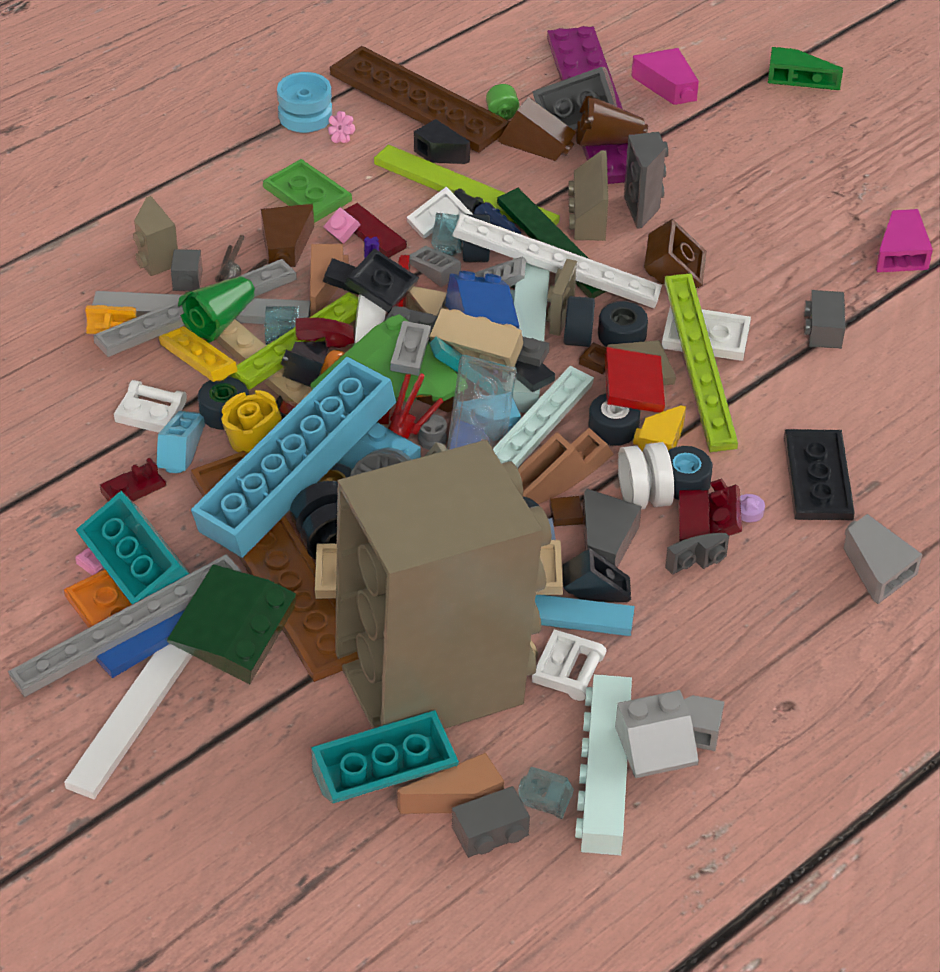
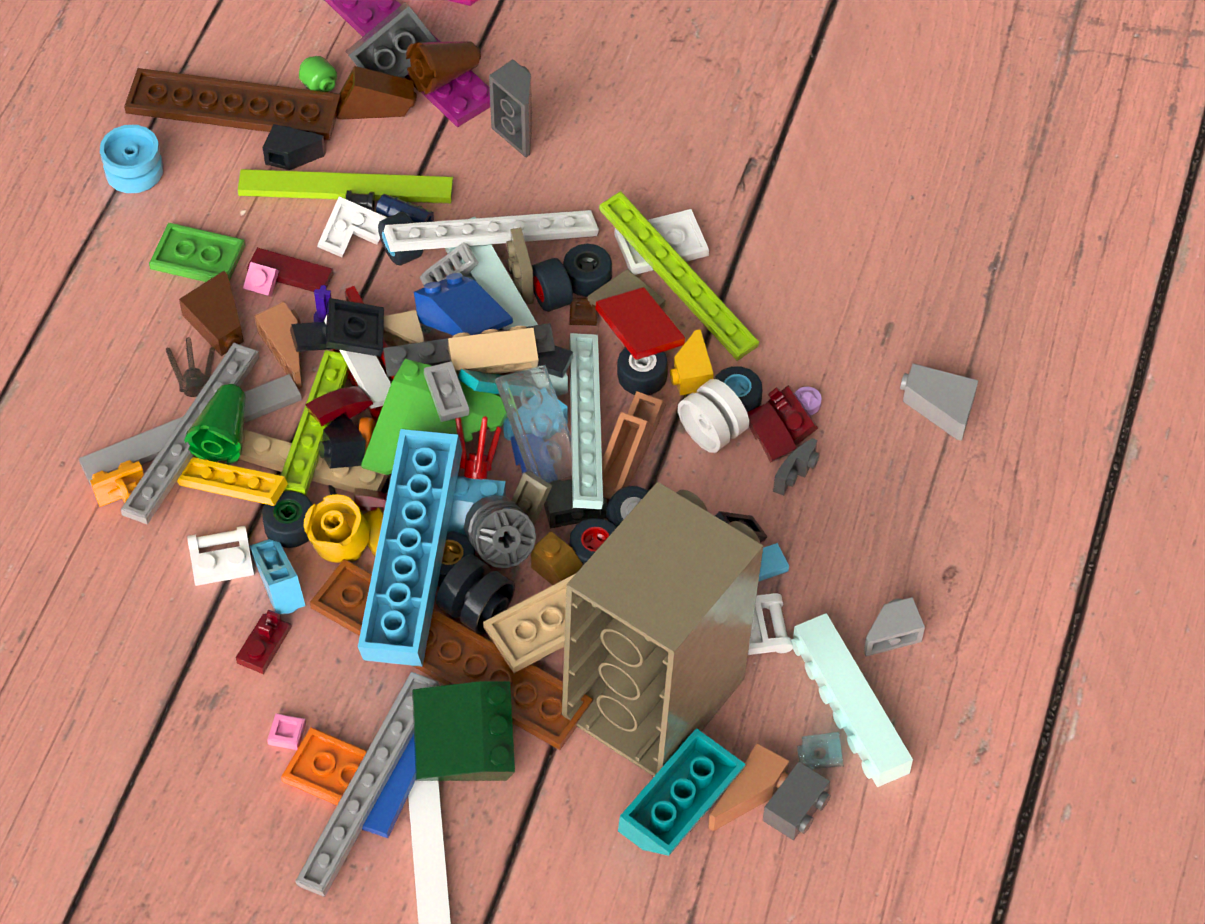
camera: 30 degrees left, 10 degrees up
(131, 549) = (321, 710): teal slope -> none
(154, 238) = (104, 377): dark tan slope -> none
(186, 270) = (150, 396): dark grey brick -> none
(279, 321) = (283, 411): clear light blue brick -> none
(341, 127) = (183, 170): bright pink plant -> none
(433, 431) = (502, 456): light grey wheel -> none
(436, 272) = (380, 290): light grey slope -> none
(442, 234) = (369, 245): clear light blue brick -> none
(541, 228) = (447, 199): dark green tile -> none
(566, 511) = (659, 473): reddish brown tile -> none
(589, 199) = (473, 147): dark tan slope -> none
(609, 525) = (708, 476): dark grey slope -> none
(656, 733) = (886, 657): light grey slope -> none
(674, 252) = (583, 175): reddish brown slope -> none
(818, 475) = (841, 340): black tile -> none
(825, 319) = (753, 181): dark grey brick -> none
(904, 243) = (770, 70): dark pink slope -> none

